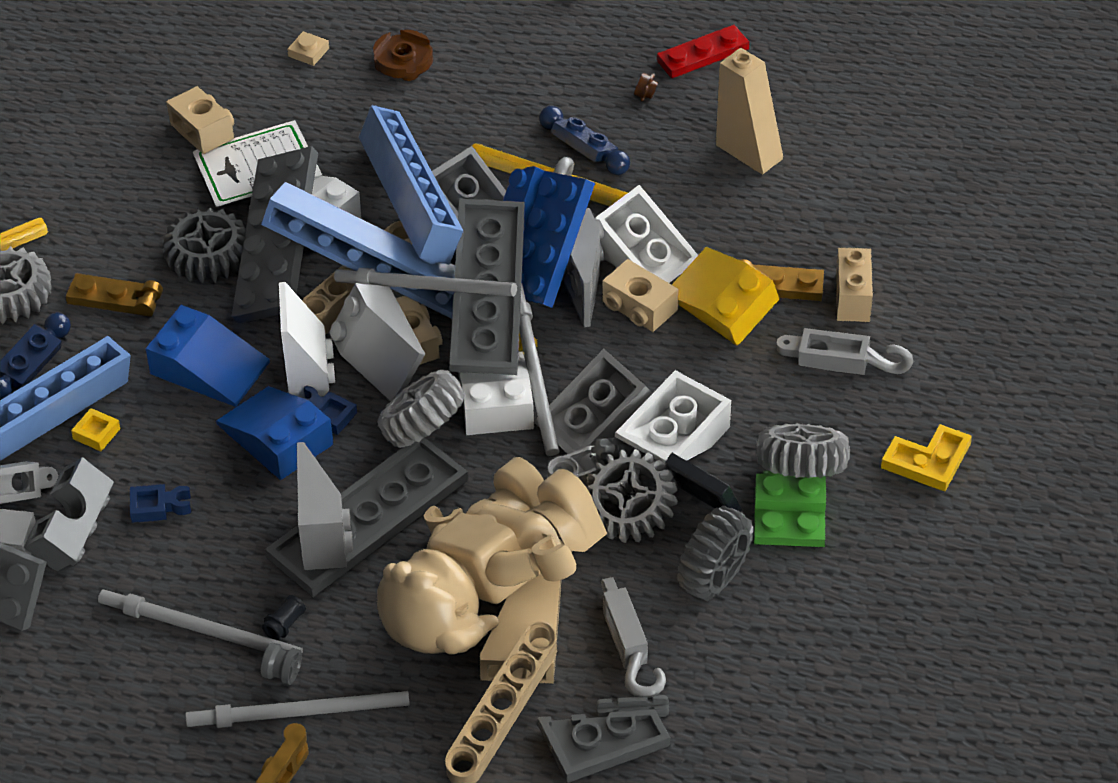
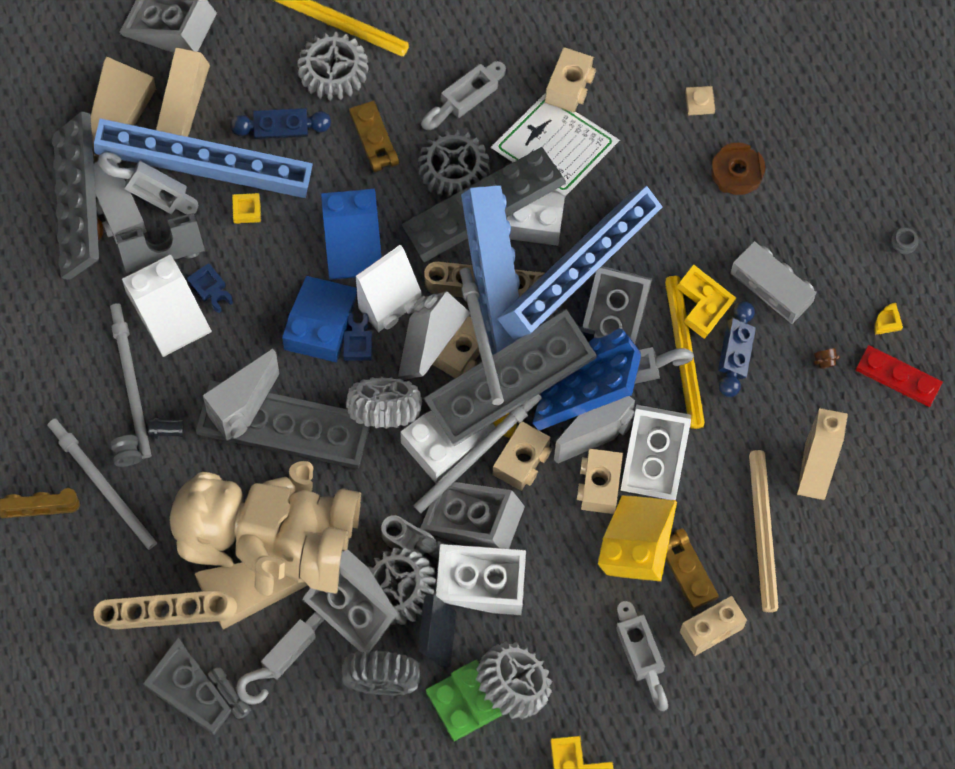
camera: 55 degrees right, 20 degrees up
(139, 207) = (462, 96): none -> light grey piece
(142, 548) = (166, 305): none -> white slope
(520, 131) = (710, 298): none -> yellow plate
(540, 83) = (773, 282): none -> light grey brick
(564, 340) = (523, 441): none -> tan brick
(638, 537) = (360, 606): none -> light grey slope
(642, 32) = (888, 320): none -> yellow tile
(782, 210) = (763, 531): none -> tan axle

